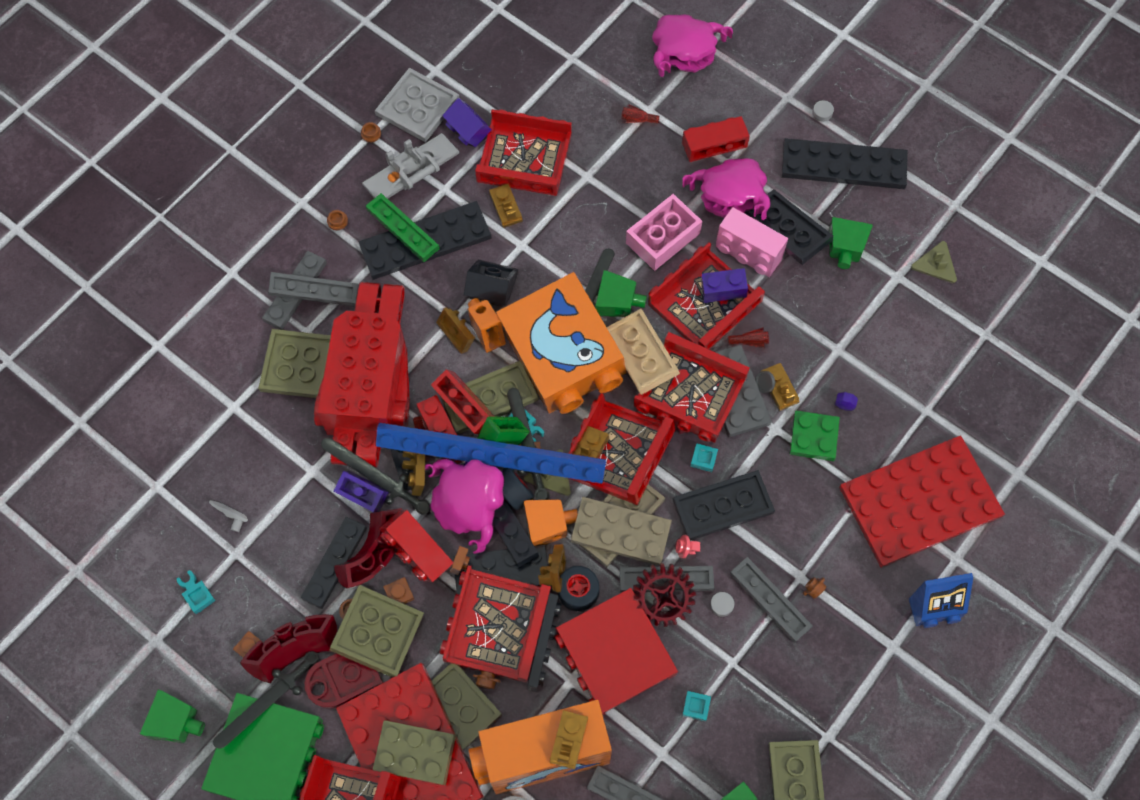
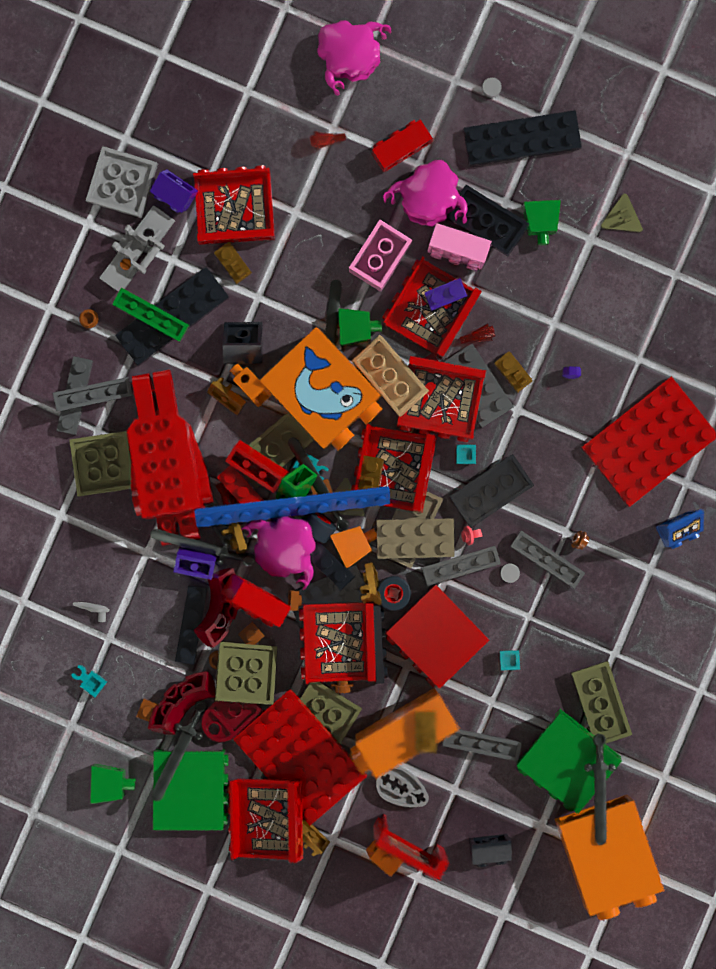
camera: 25 degrees left, 20 degrees up
(370, 132) = (88, 222): dark orange plate -> none
(414, 752) = (306, 759): olive plate -> none
(669, 586) = (460, 577): dark red gear -> none
(765, 381) = (500, 372): dark grey piece -> none
(814, 435) = (551, 408): green plate -> none

